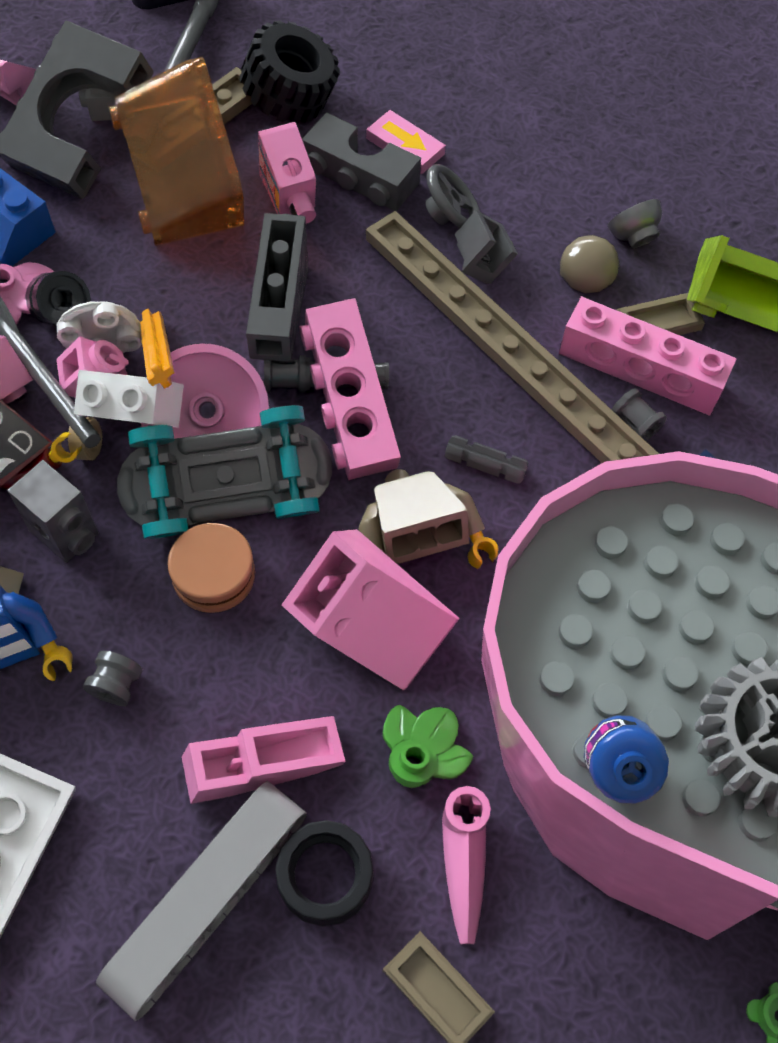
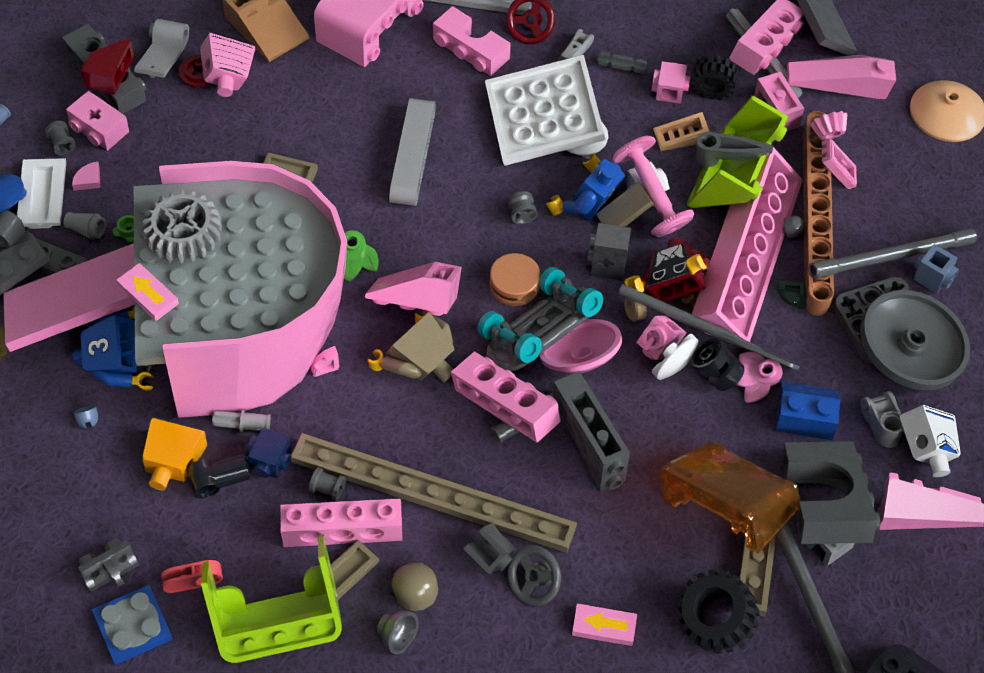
camera: 150 degrees right, 5 degrees down
(127, 398) = (616, 310): white brick -> none
(156, 349) = (627, 345): light orange axle -> none
(261, 755) = (425, 211): bright pink slope -> none
(292, 185) = (655, 529): bright pink torso -> none
(294, 847) = (370, 199): black tyre -> none
(382, 177) = (643, 573): dark grey arch -> none
(486, 459) = (405, 415): dark grey axle -> none
(626, 759) = (245, 182): blue head -> none

